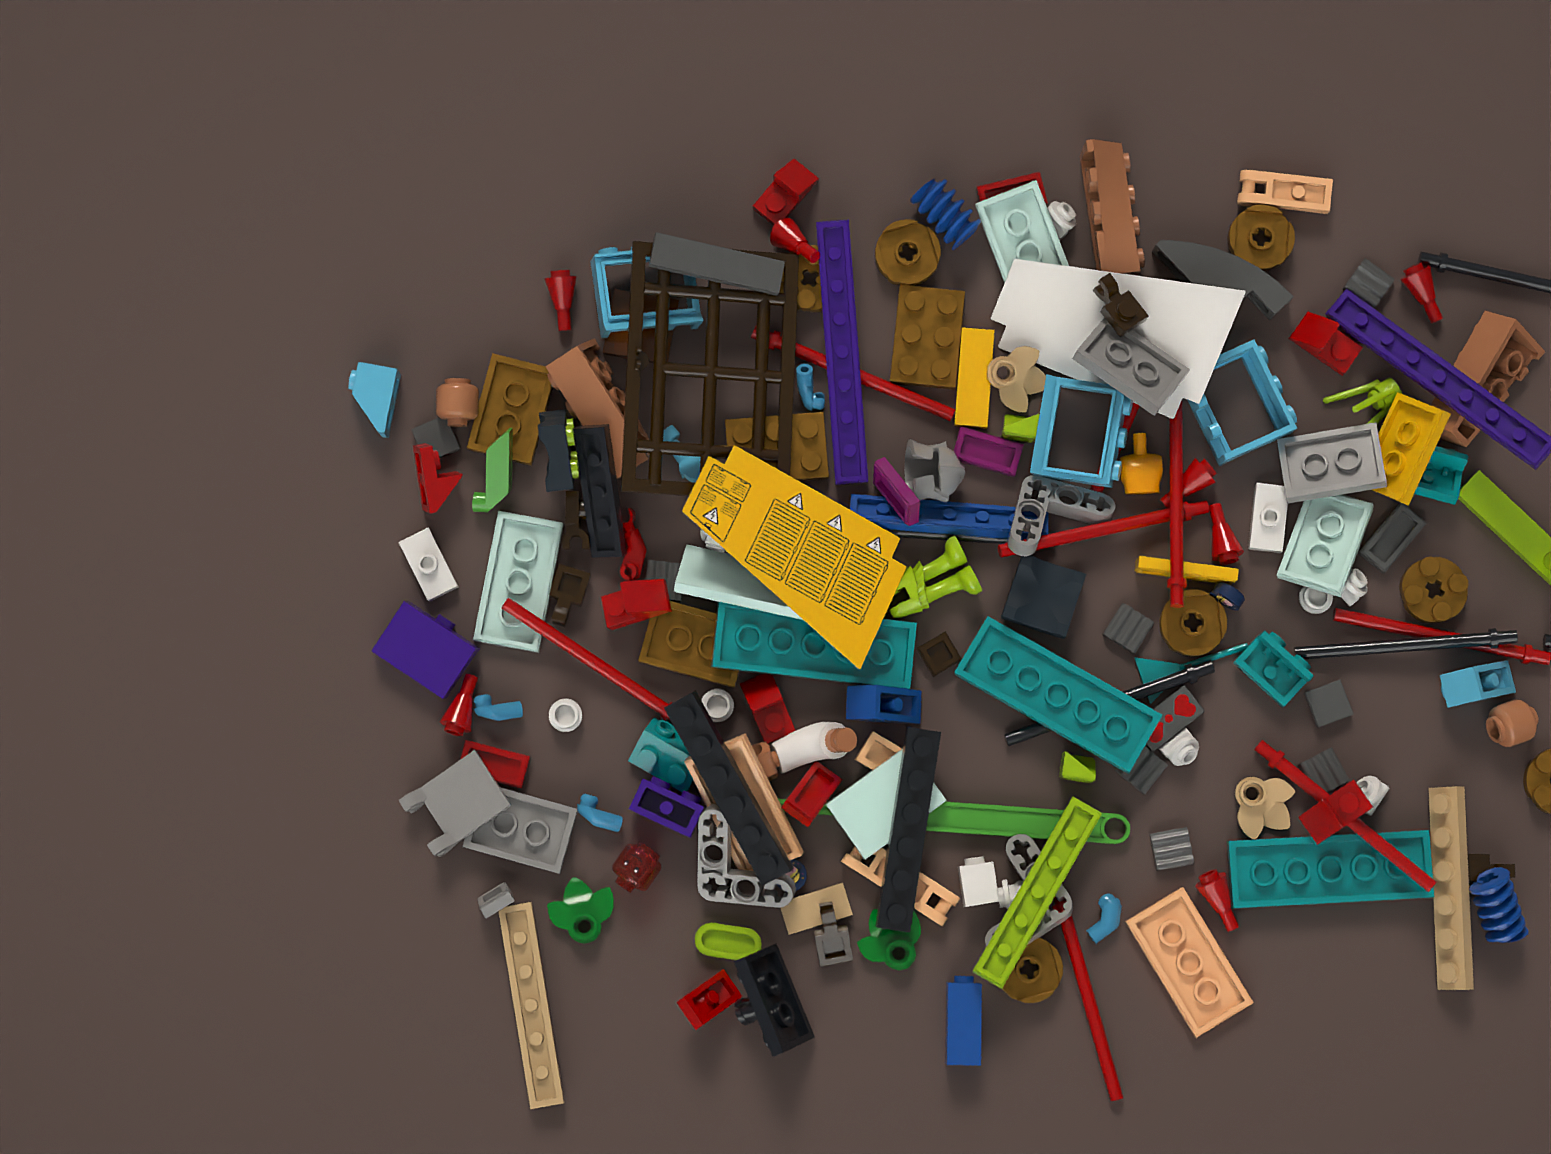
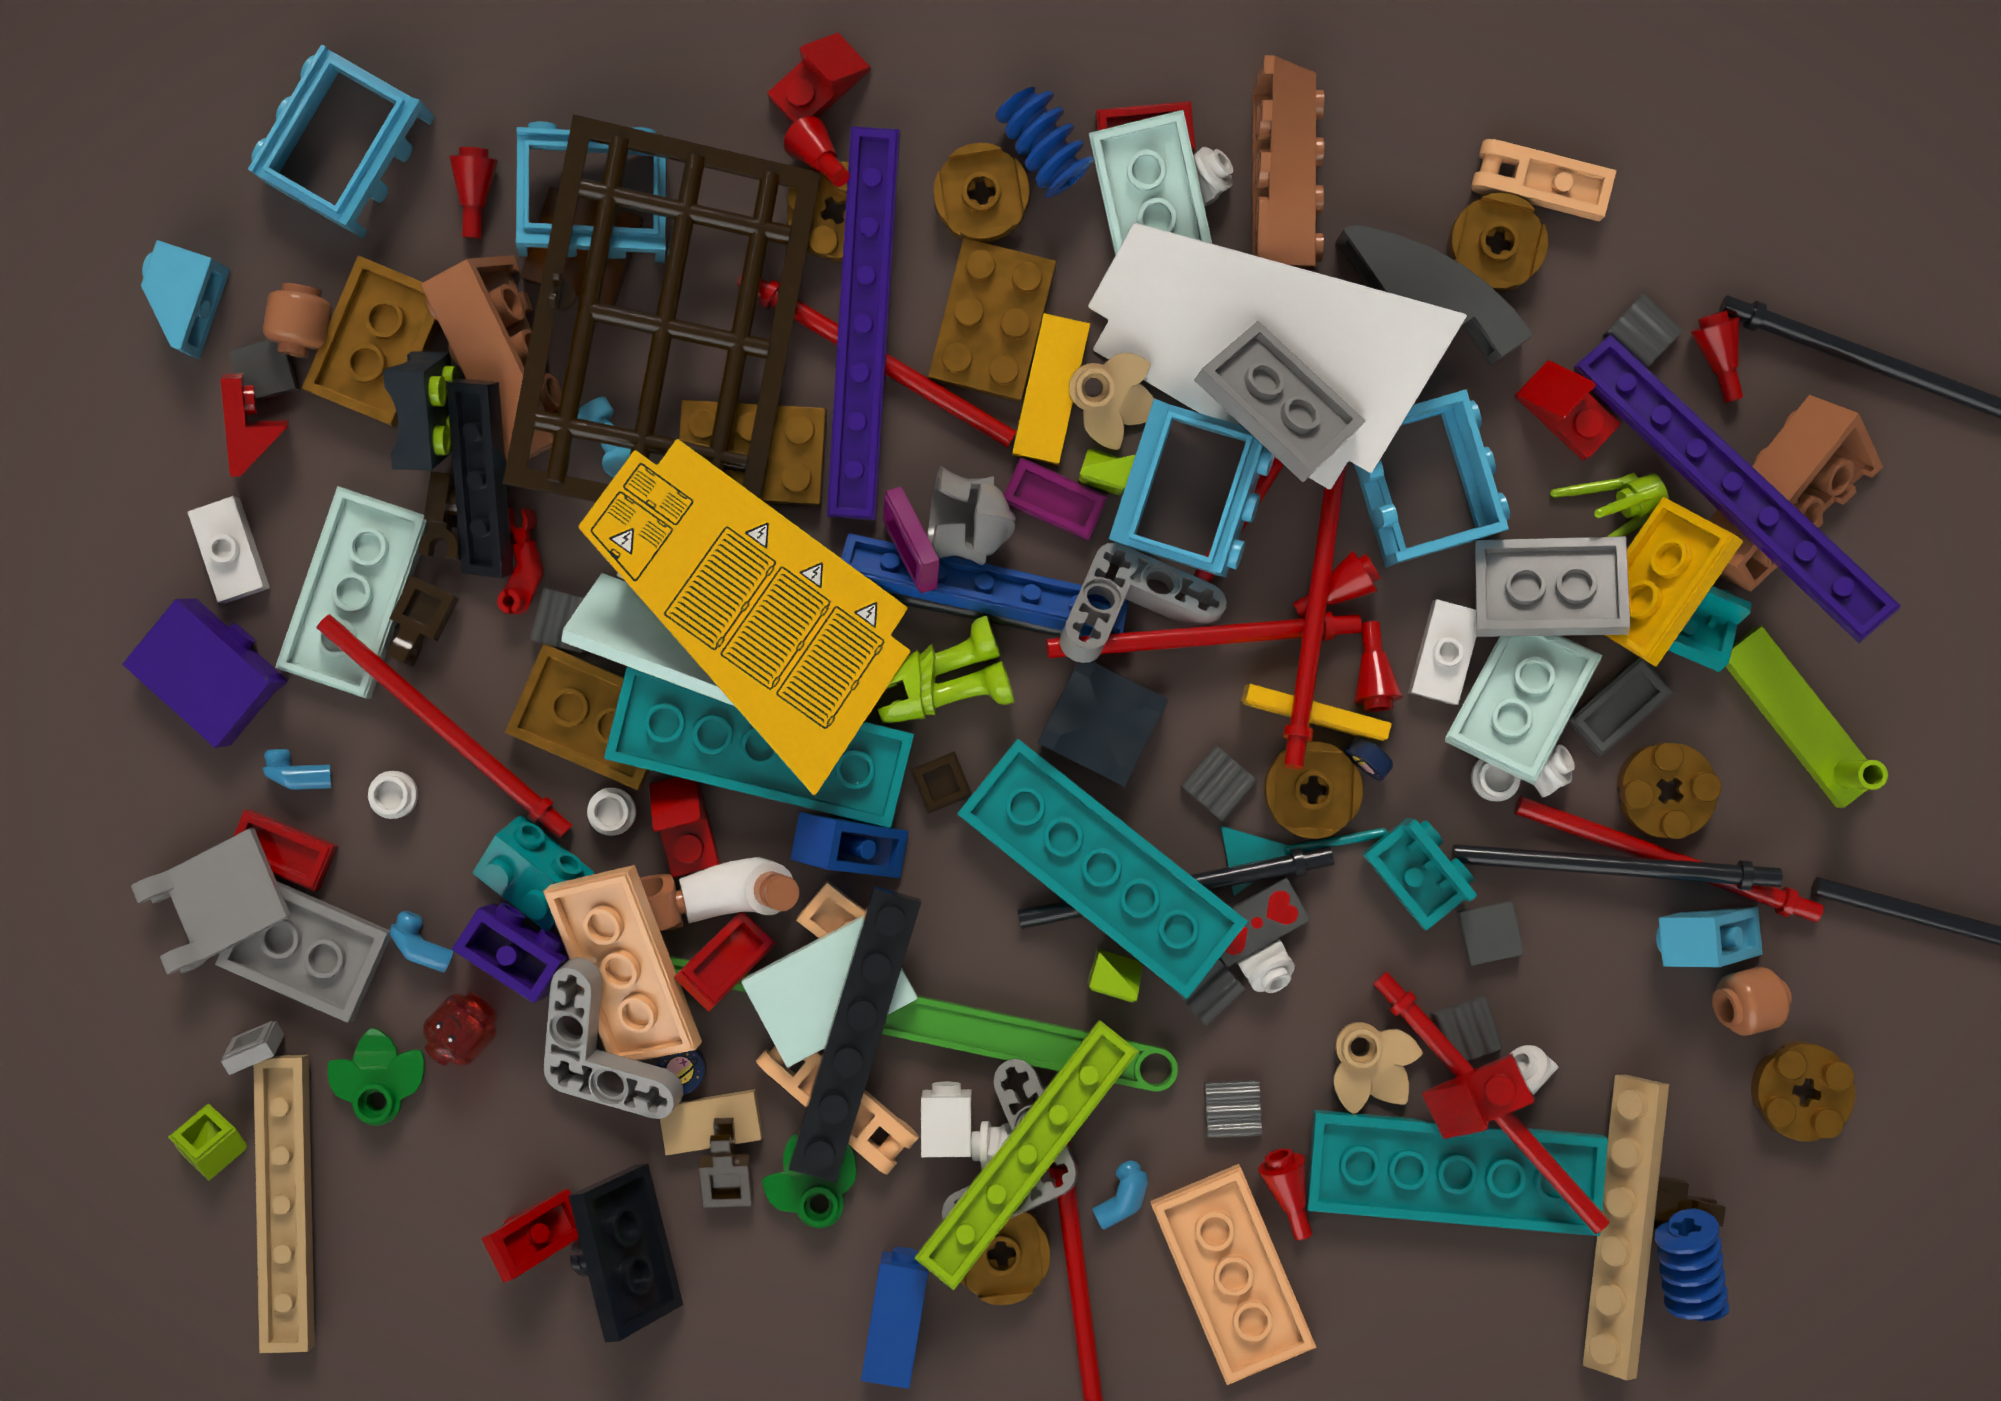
camera: 15 degrees right, 5 degrees up
(459, 713) = (241, 769): red cone -> none
(472, 971) = (208, 1141): none -> lime slope
(493, 303) = (296, 113): none -> medium azure window
(498, 473) = (339, 430): bright green piece -> none
(636, 602) = (513, 647): red slope -> none
(716, 264) = (690, 165): dark grey tile -> none
(727, 941) = (578, 1150): lime tile -> none
(729, 788) = (597, 941): black plate -> none
(806, 388) = (806, 373): dark azure arm -> none
(1122, 310) = (1277, 318): dark brown plate -> none
(1142, 470) = (1270, 557): light orange piece -> none

